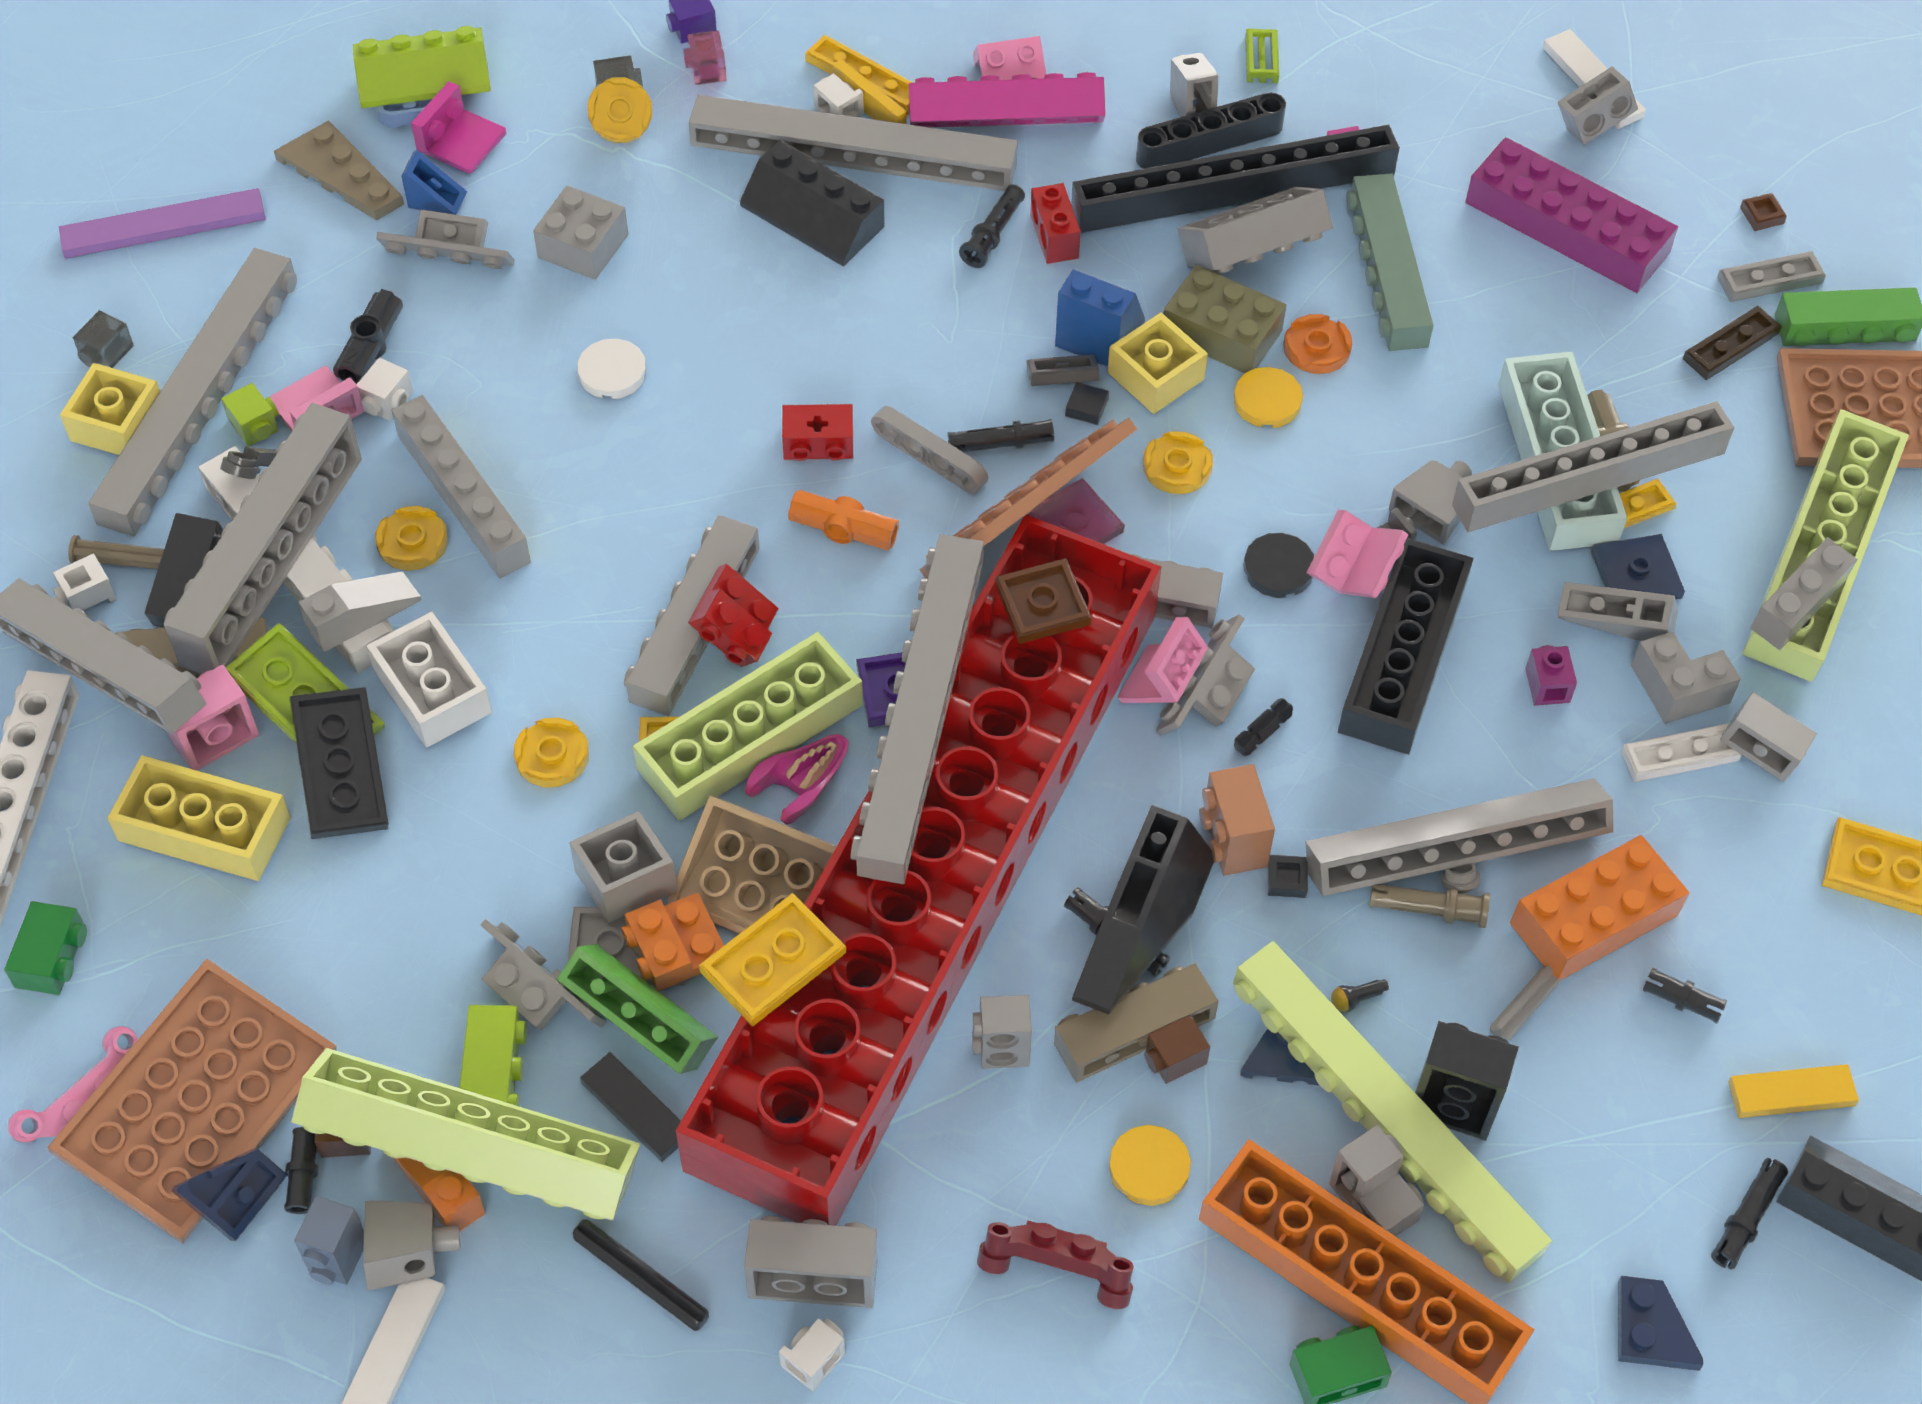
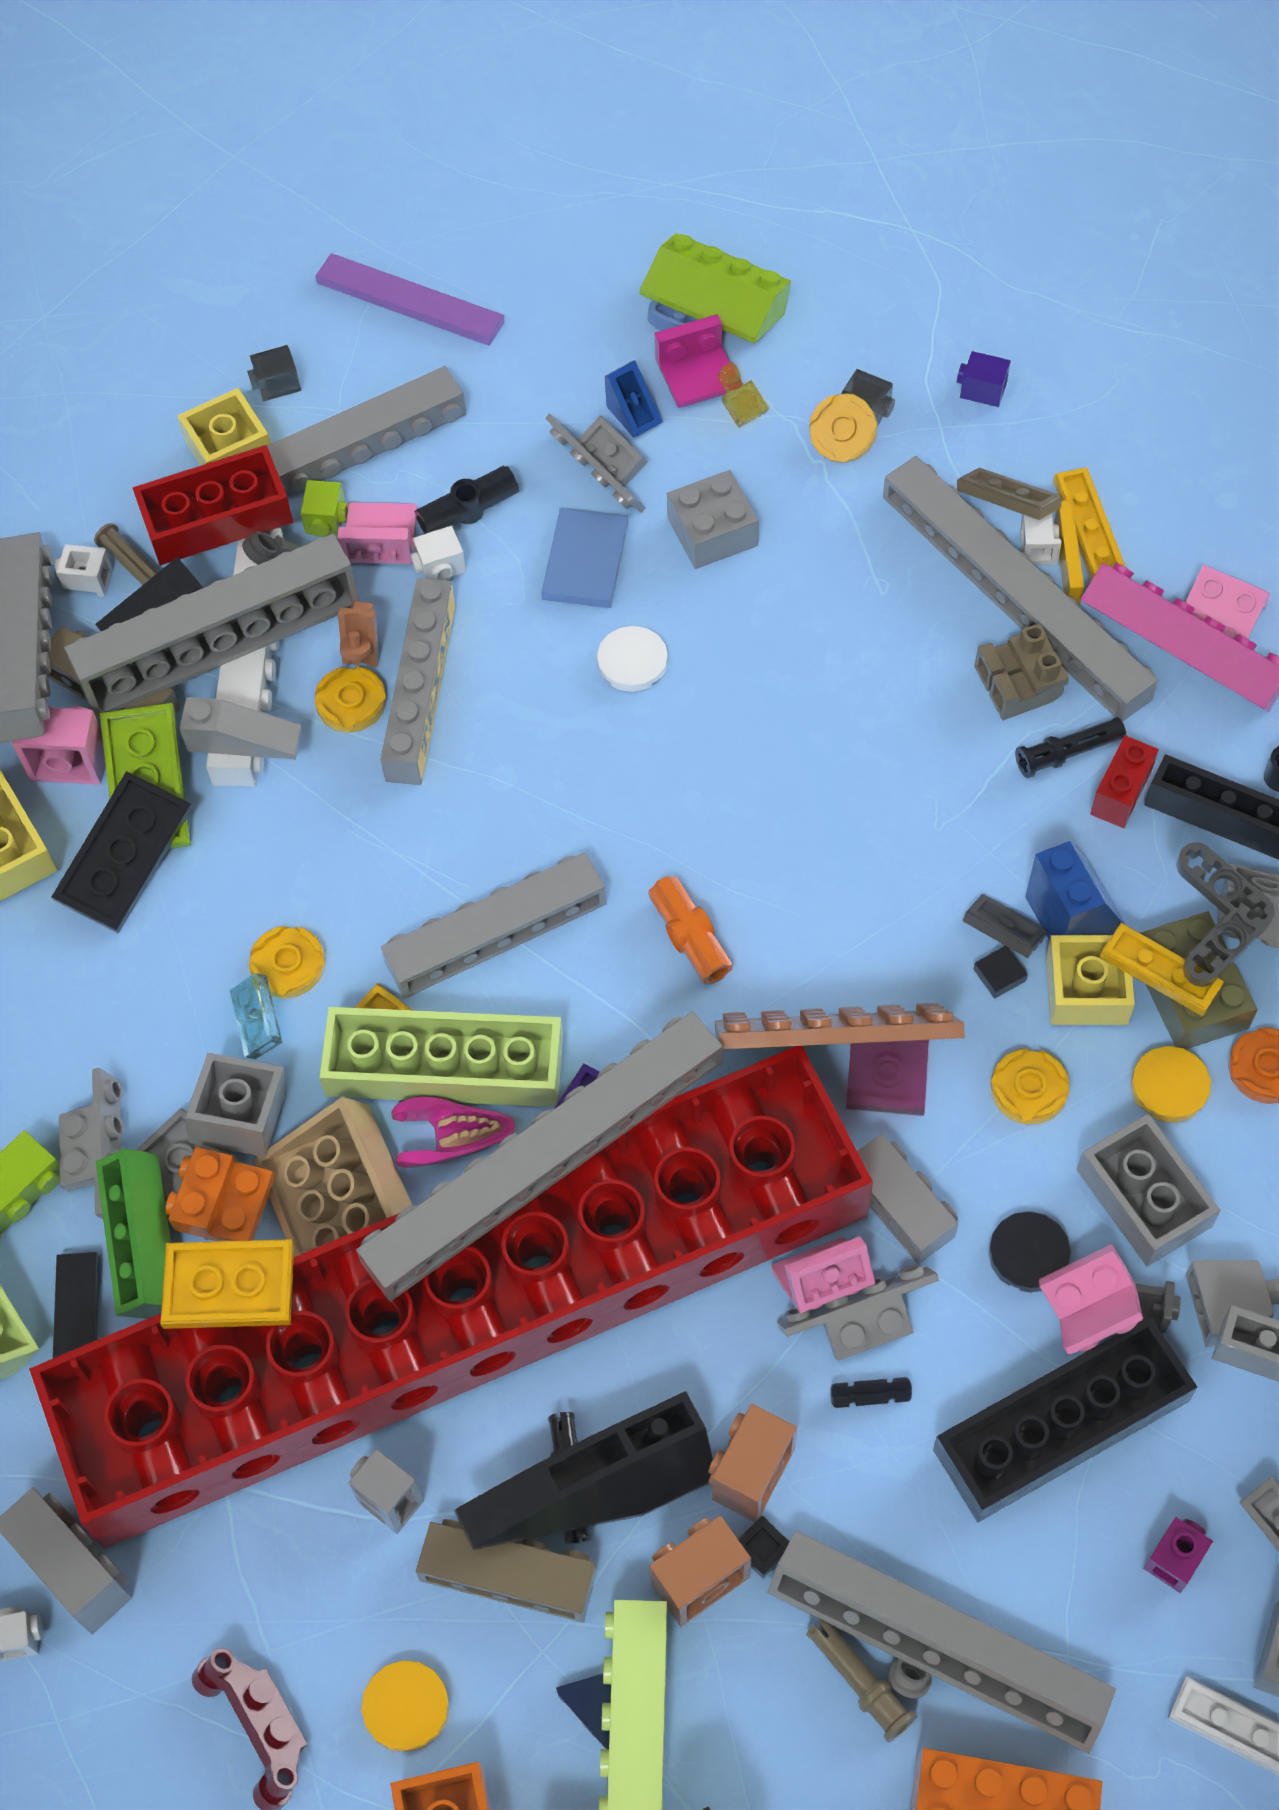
camera: 45 degrees right, 5 degrees up
(167, 456) = (213, 504): none -> red brick
(340, 168) = (582, 338): dark tan wing -> none
(381, 481) = (358, 634): none -> nougat hips
(429, 679) = (244, 831): white brick -> none
(502, 322) = (585, 558): none -> medium blue tile
(518, 137) = (742, 400): none -> clear yellow plate
(568, 802) = (255, 1016): none -> clear light blue plate
(705, 57) = (962, 424): clear pink brick -> none
(734, 617) = (516, 952): red plate -> none
(790, 81) = (1009, 493): none -> dark tan tile
(813, 203) = (929, 621): black slope -> none
(817, 431) = (740, 834): red brick -> none
(916, 193) = (1021, 672): none -> dark tan hips
(929, 449) = (820, 918): light grey beam -> none
(1003, 436) = (885, 945): black pin -> none
(1042, 601) = (737, 1136): reddish brown tile -> none
(1177, 1049) = (516, 1625): reddish brown brick -> none
(1204, 317) = (1158, 968): none -> yellow tile
(1228, 246) = (1235, 919): none -> dark grey beam
(1267, 906) = (699, 1569): none -> nougat brick
(1321, 466) = (1147, 1189): none -> light grey brick
(1347, 997) = (706, 1701): black piece -> none

